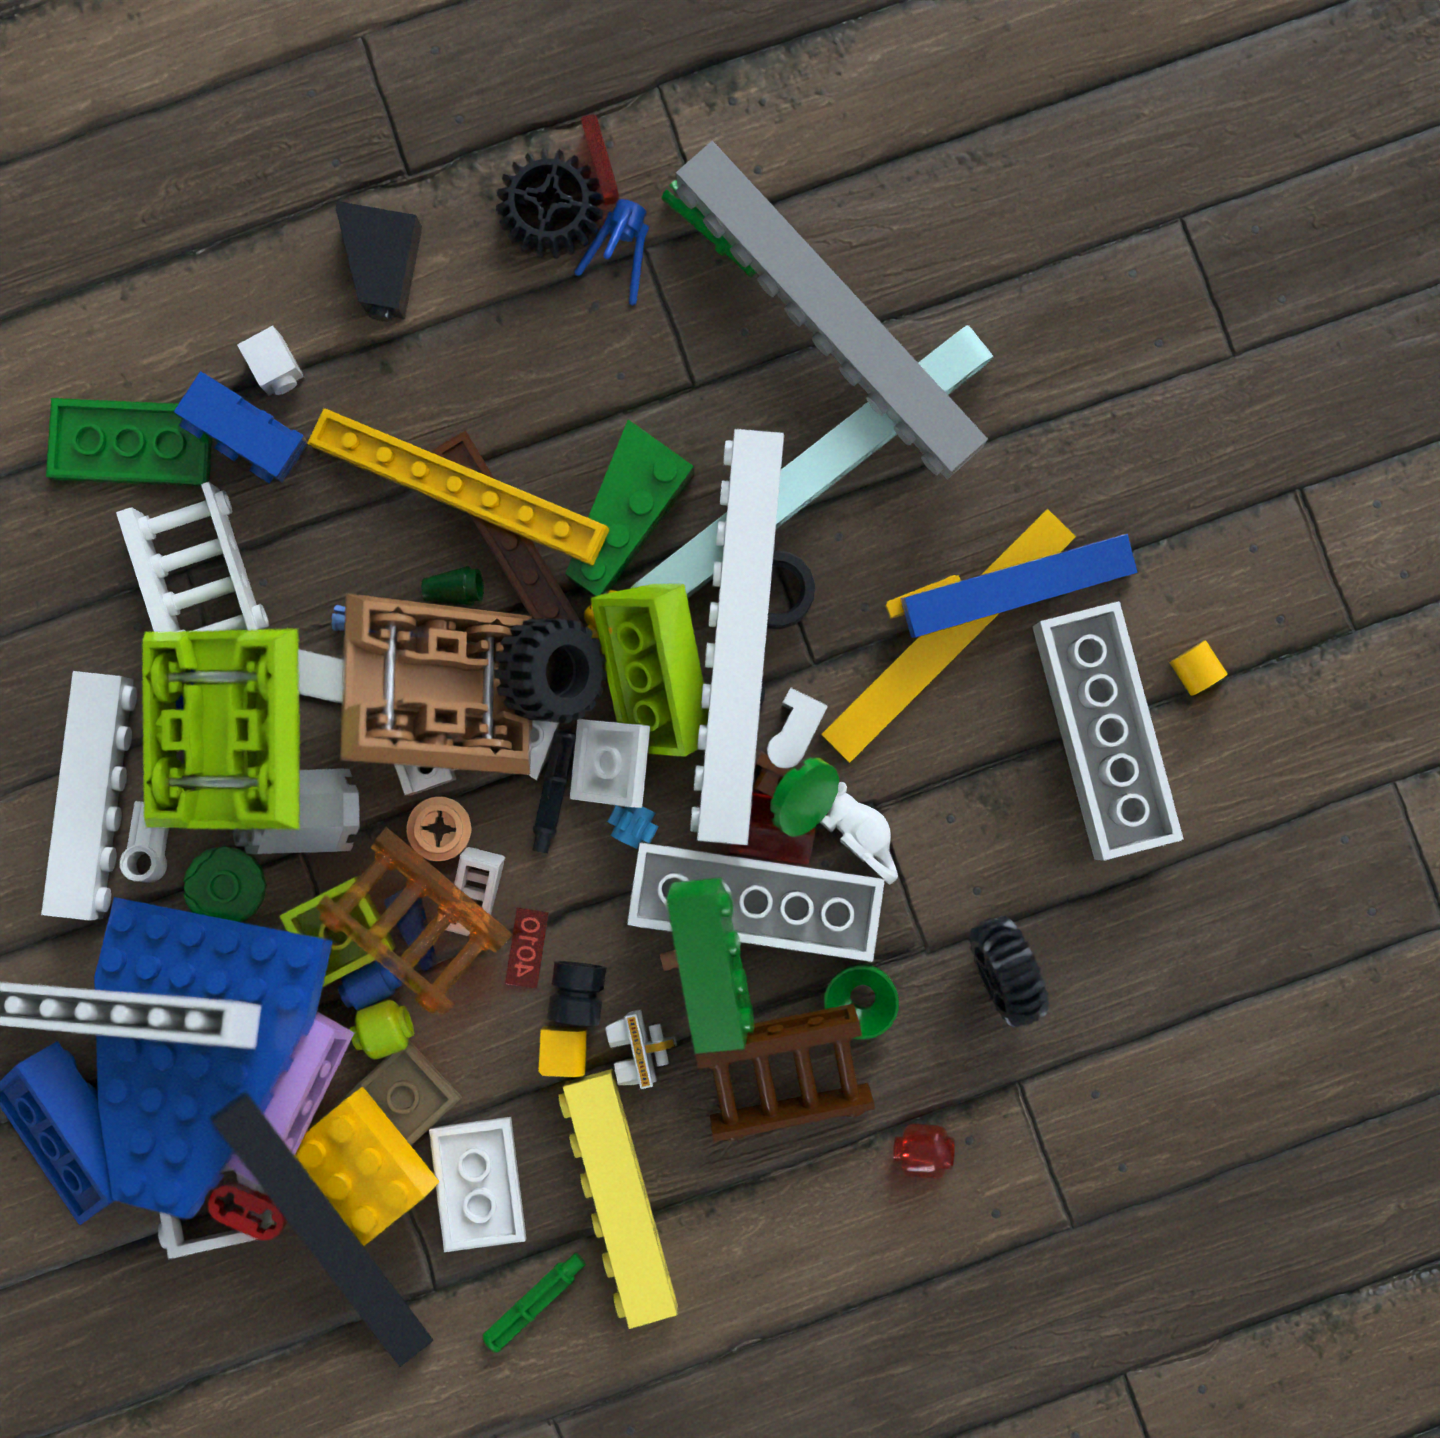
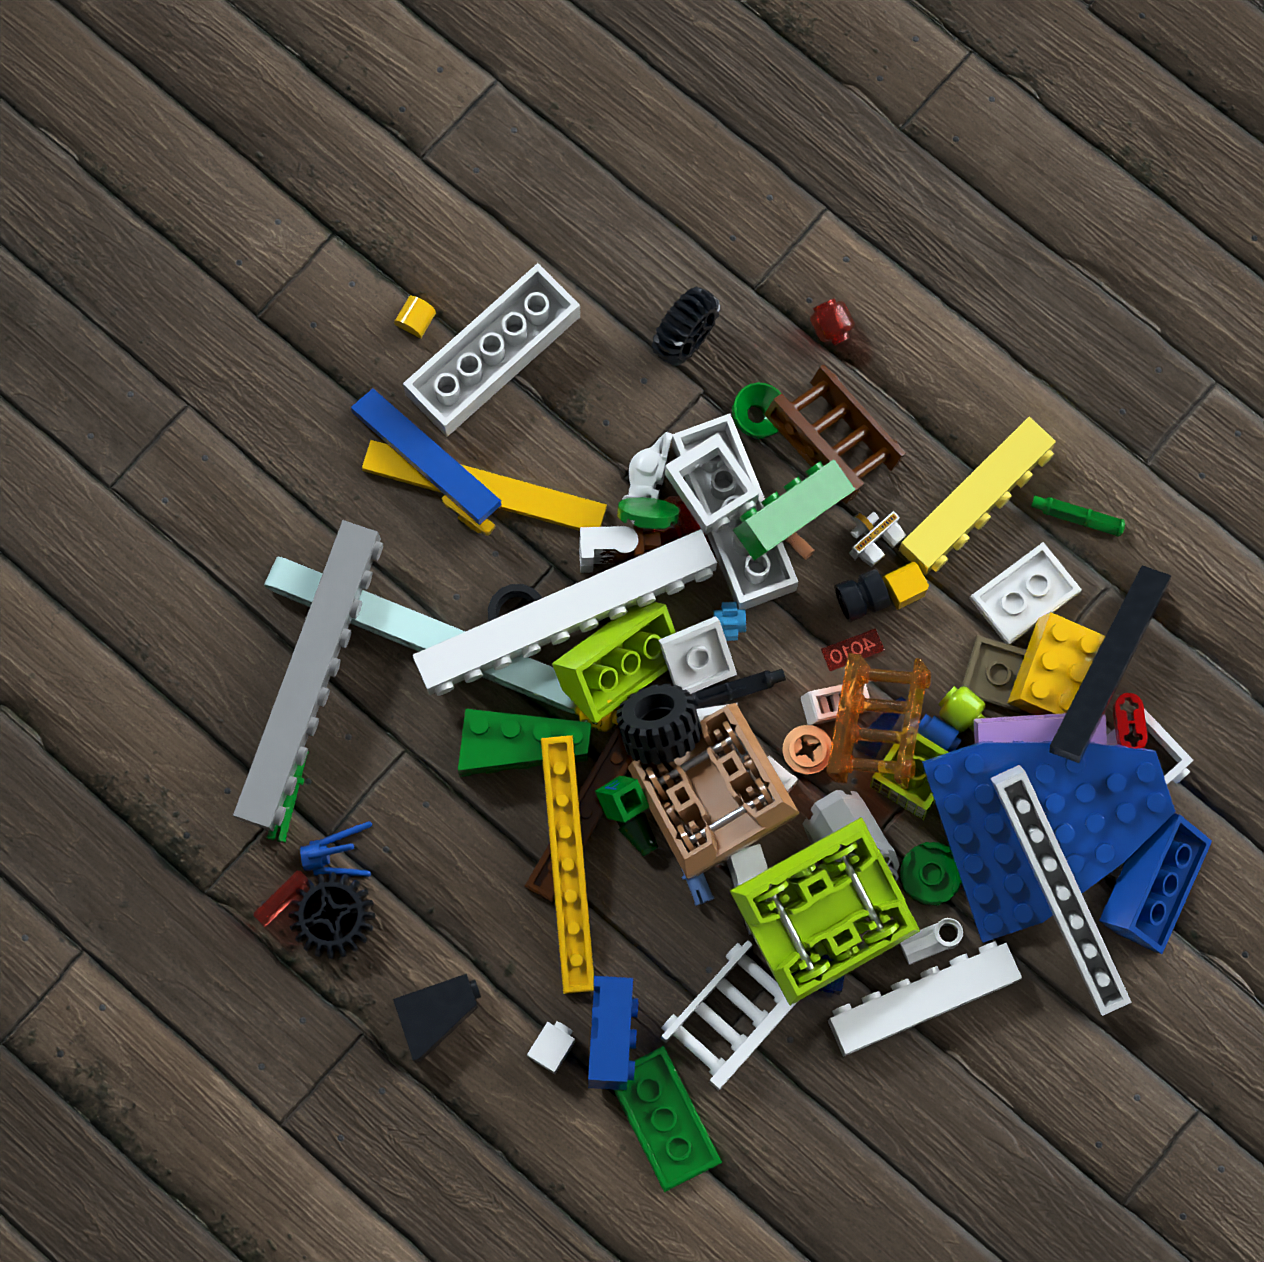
camera: 120 degrees left, 10 degrees down
(493, 584) = (622, 798): none -> green brick
(836, 889) = (695, 458): none -> white window

